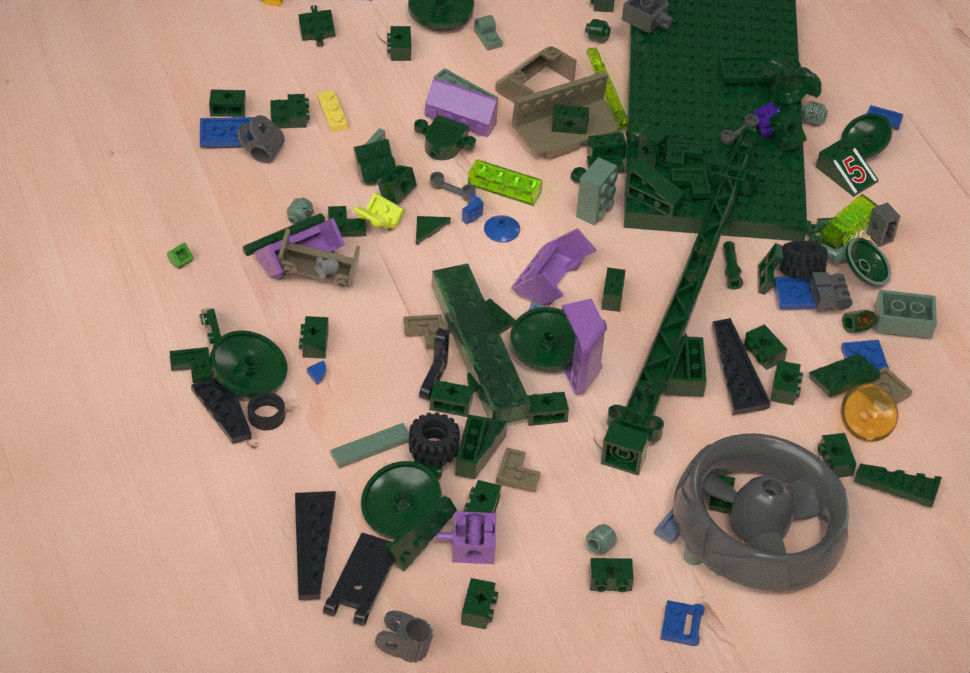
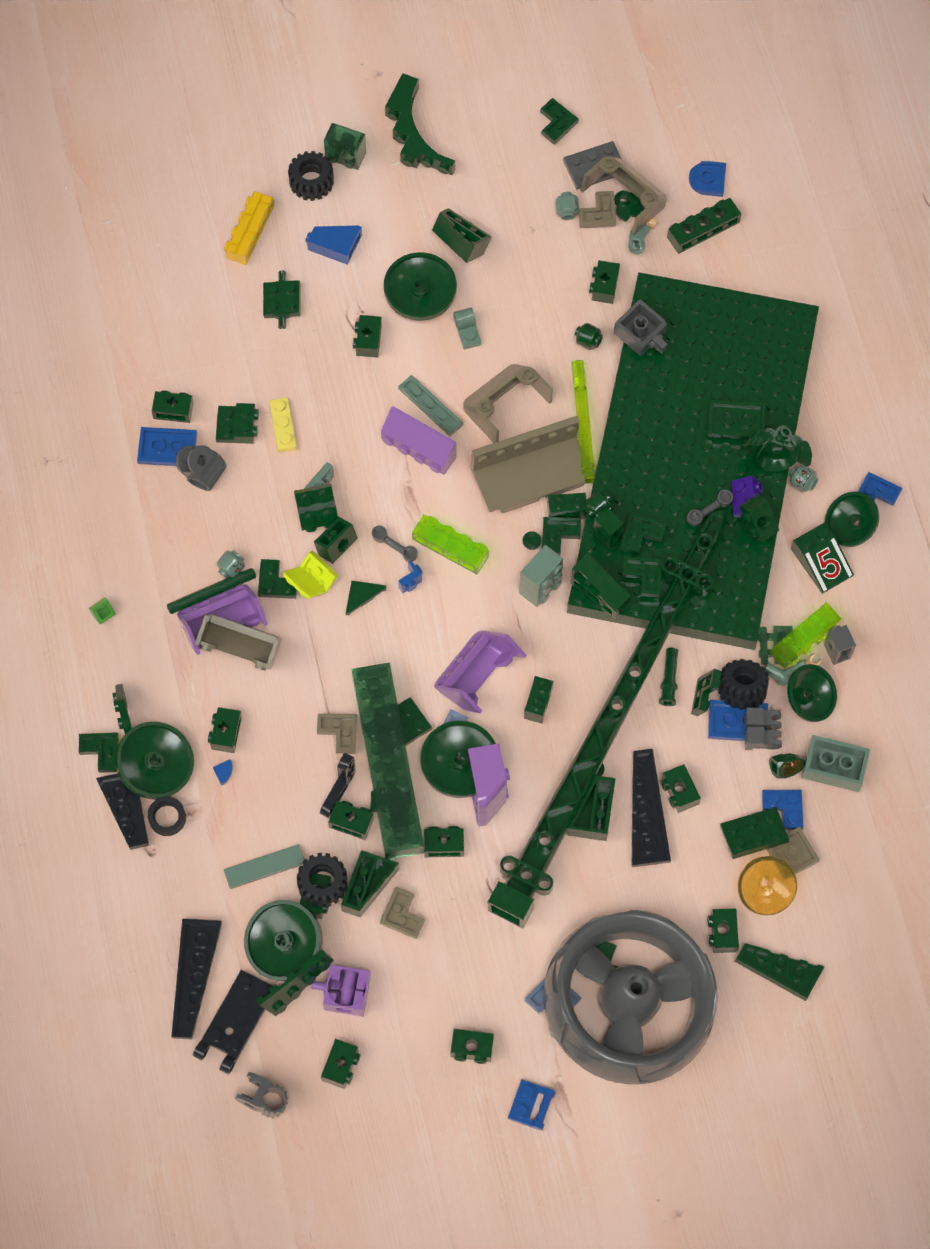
camera: 10 degrees right, 20 degrees up
(326, 267) = (246, 647): light grey brick -> none
(444, 137) = (396, 477): dark green piece -> none
(484, 498) = (369, 941): dark green brick -> none
(502, 228) = (438, 610): blue dish -> none
(570, 119) = (532, 470): dark green brick -> none
(601, 539) = (470, 1004): sand green head -> none
(786, 382) = (693, 824): dark green brick -> none

